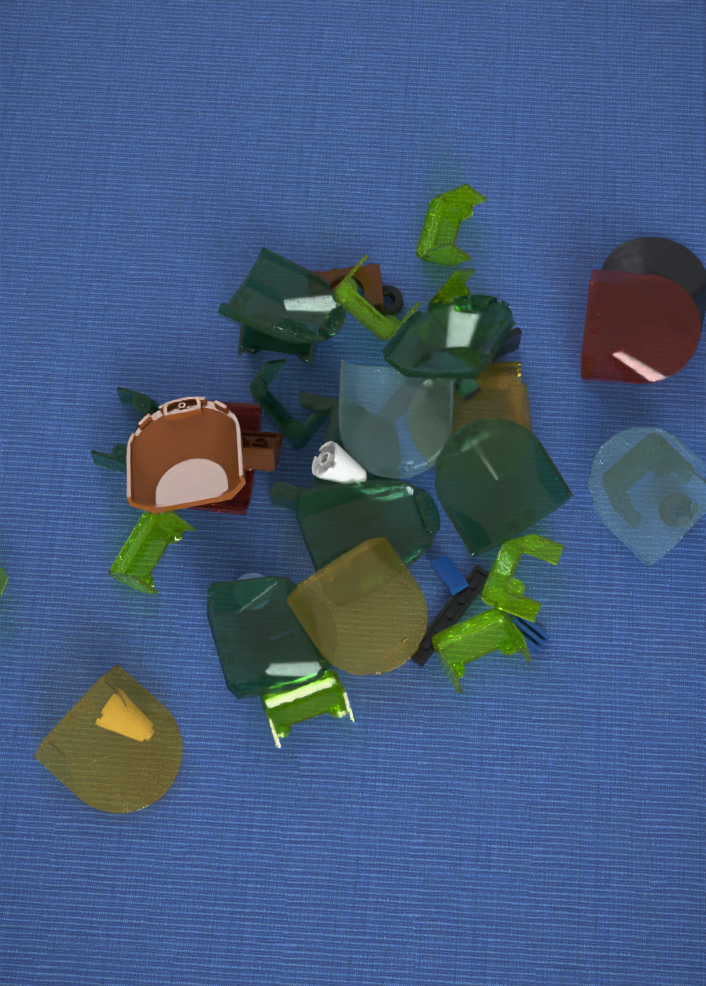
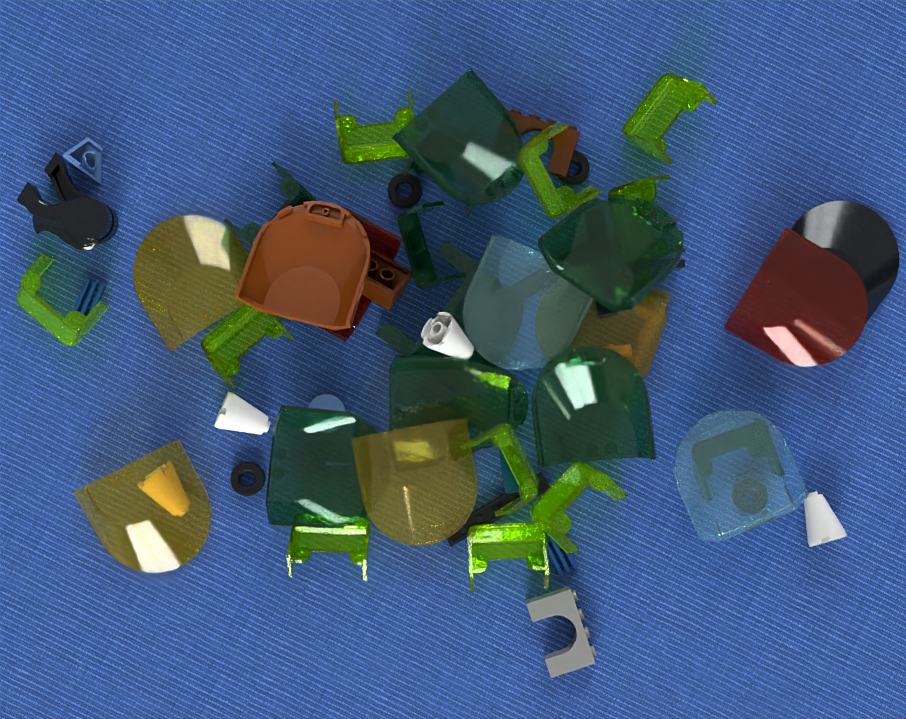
camera: 20 degrees right, 20 degrees up
(75, 520) = (188, 275): none -> clear yellow windscreen
(171, 622) = (241, 416): none -> white cone
(192, 672) = (236, 478): none -> black tyre
(203, 343) = (371, 141): none -> clear neon green windscreen
(241, 364) = (408, 201): none -> black tyre
(446, 555) = (505, 438): none -> clear neon green windscreen
(554, 674) = (578, 652): none -> light grey arch

